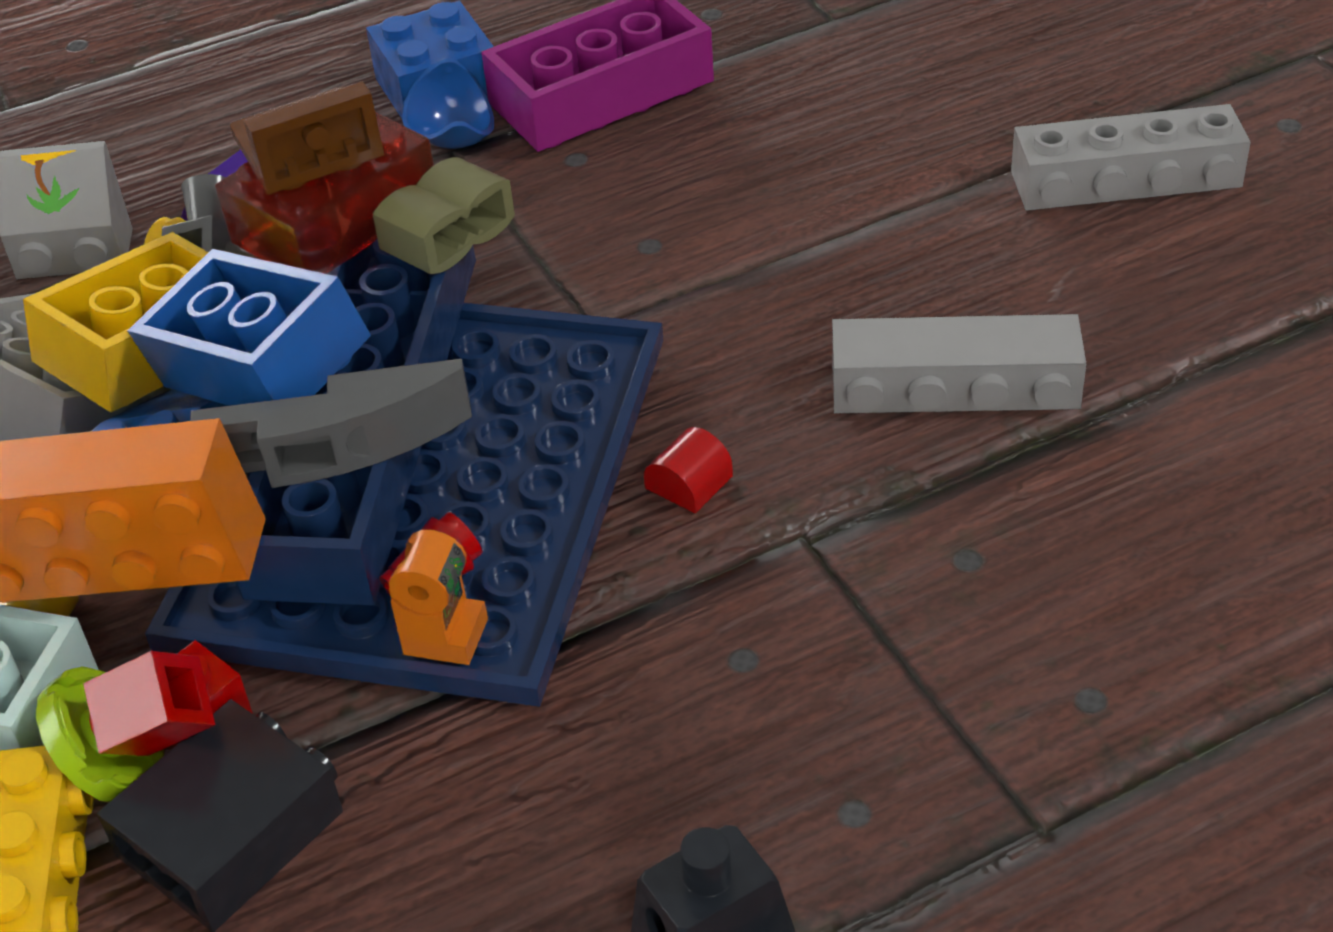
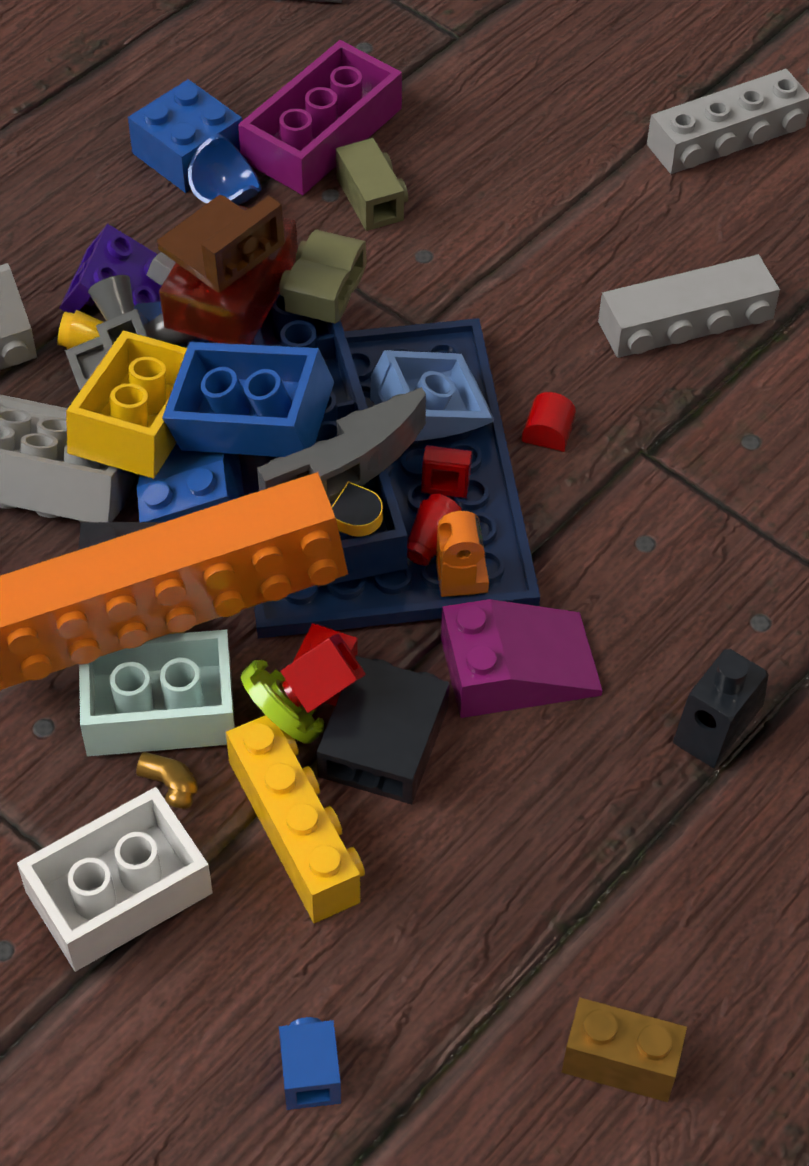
camera: 25 degrees left, 10 degrees up
(304, 501) = (358, 510): none -> black tile
(461, 763) = (515, 656): none -> magenta slope
(495, 492) = (446, 471): none -> red brick
(532, 393) = (451, 390): none -> medium blue slope
(621, 150) = (371, 184): none -> olive brick

